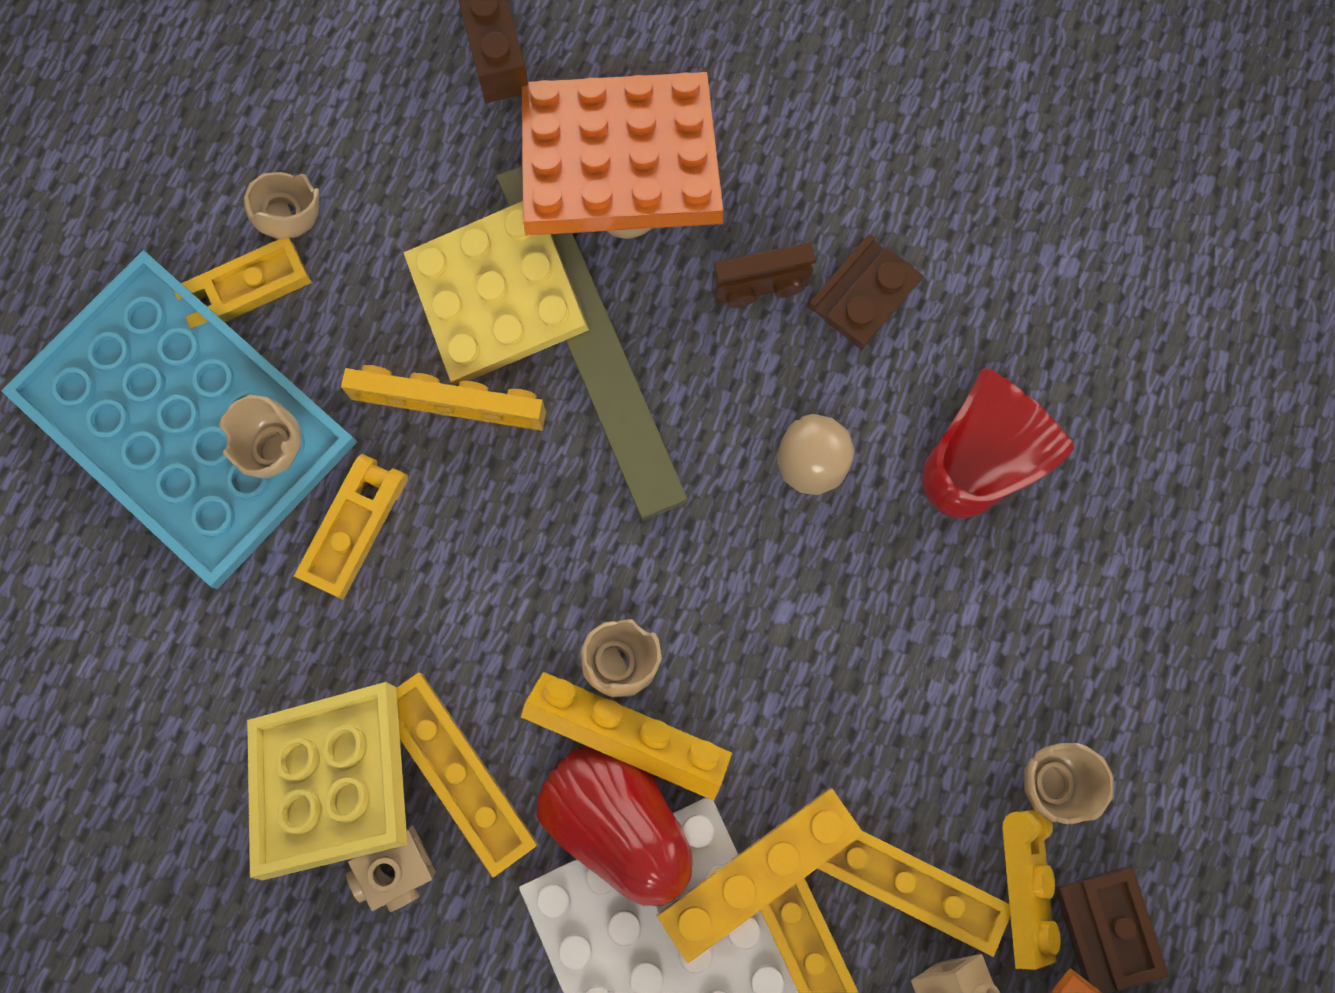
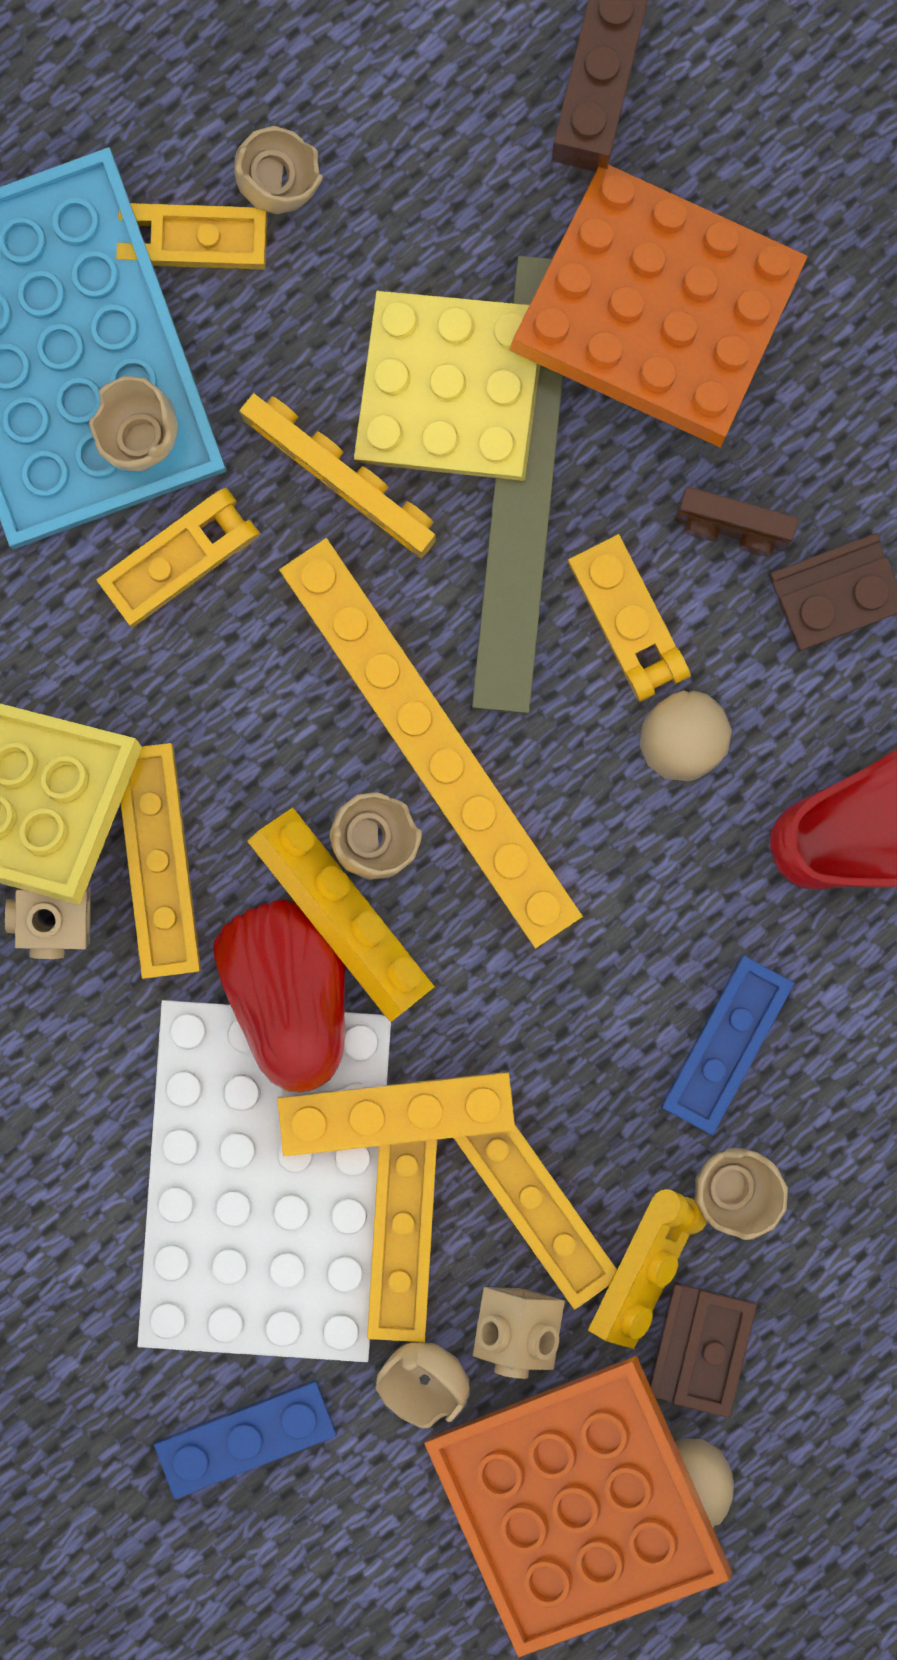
camera: 30 degrees right, 10 degrees up
(627, 564) = (430, 743): none -> yellow plate
(722, 389) = (627, 616): none -> yellow plate
(985, 672) = (727, 1044): none -> blue plate

